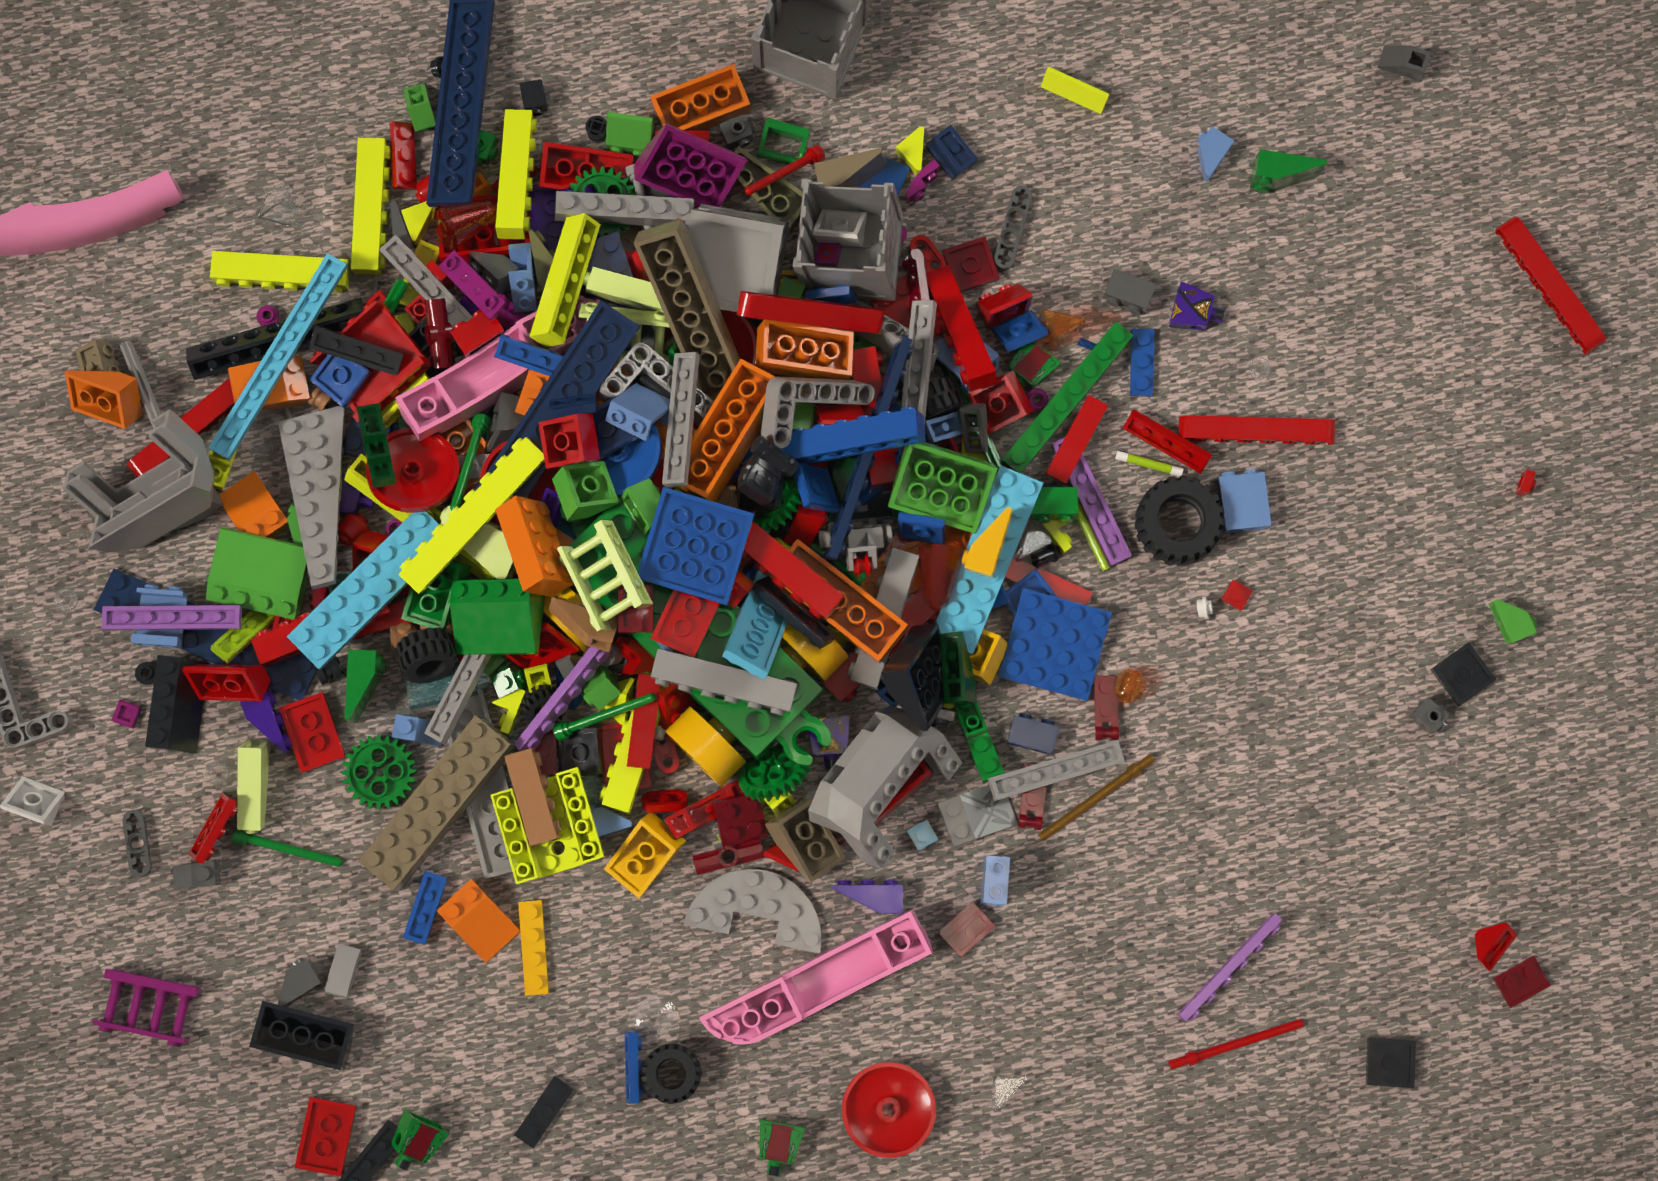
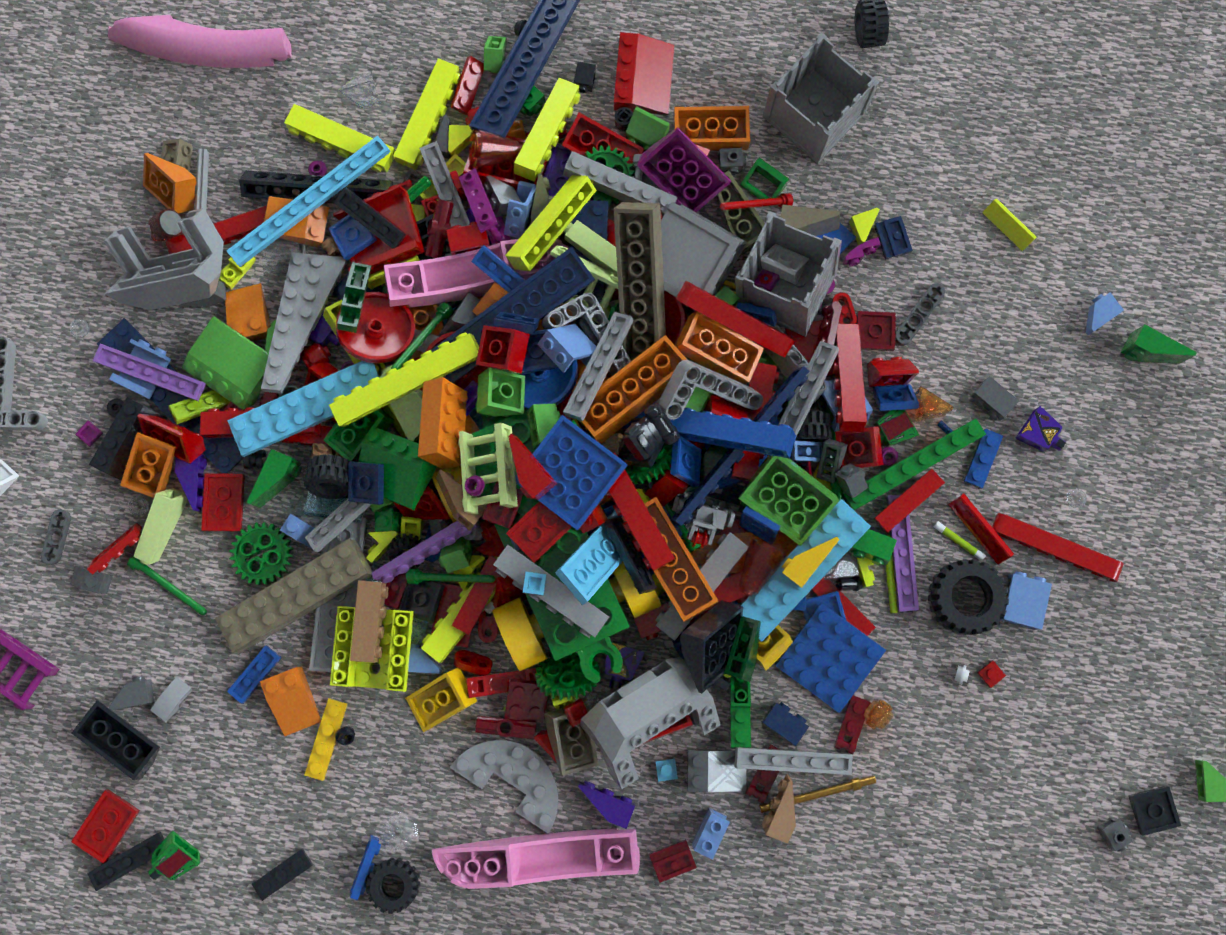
camera: 25 degrees right, 0 degrees up
(120, 445) = (164, 225): none -> piece
(215, 721) = (148, 465): none -> orange slope
(472, 645) = (366, 483): none -> dark blue plate
(557, 938) = (345, 735): none -> black plate
(592, 599) = (470, 485): none -> magenta plate
(599, 69) = (643, 73): none -> slope
(655, 562) = (530, 472): none -> red slope
(703, 678) = (534, 583): none -> medium azure plate
(798, 807) = (575, 712): none -> red tile
(1004, 441) = (851, 480): none -> dark grey brick
(1066, 838) = (781, 818): none -> medium nougat slope

